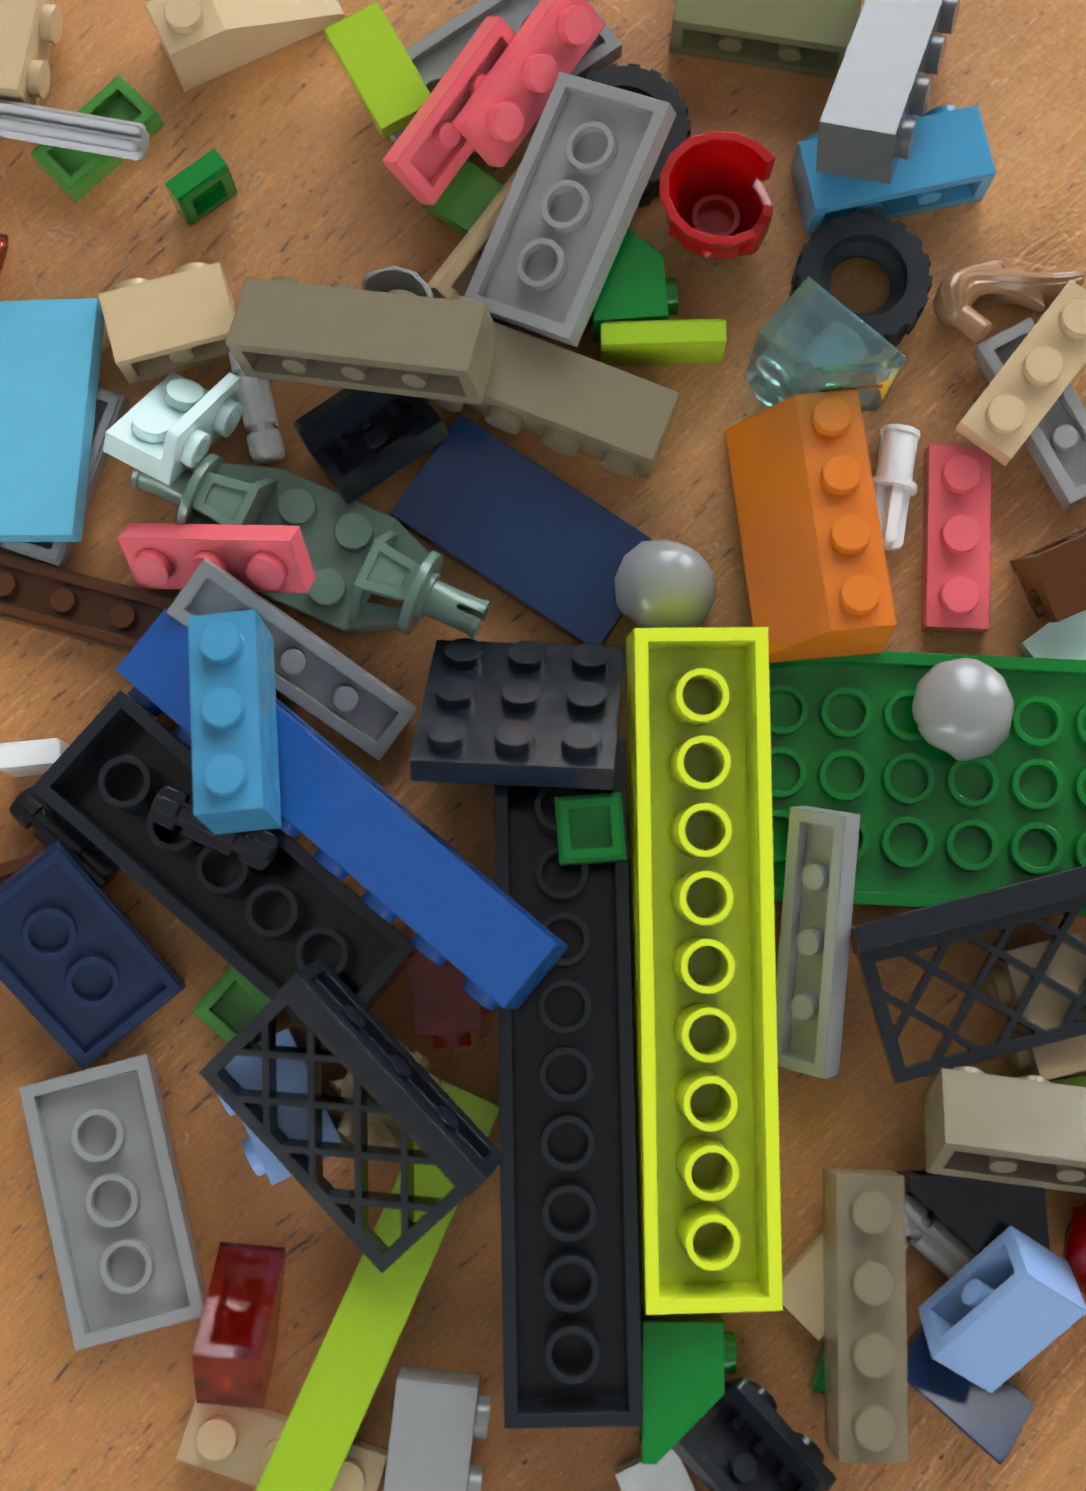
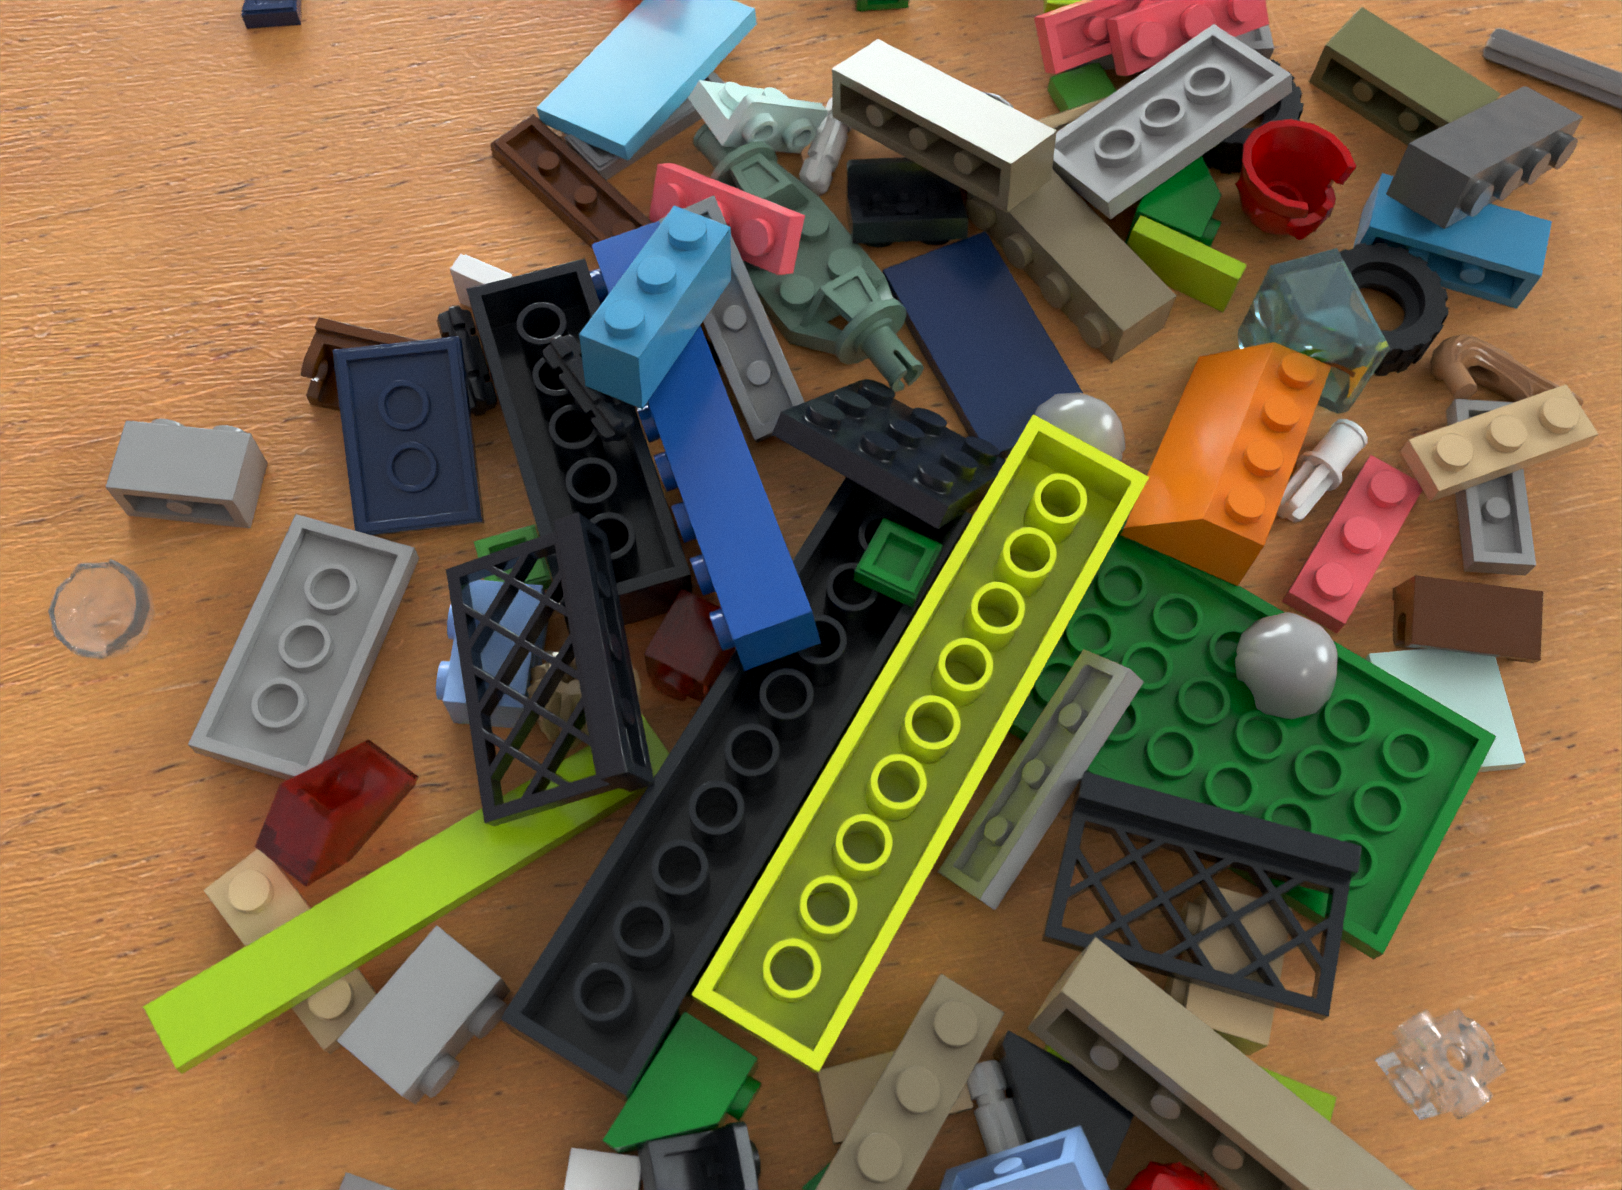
camera: 25 degrees right, 15 degrees down
(169, 321) = (795, 51): tan brick -> none

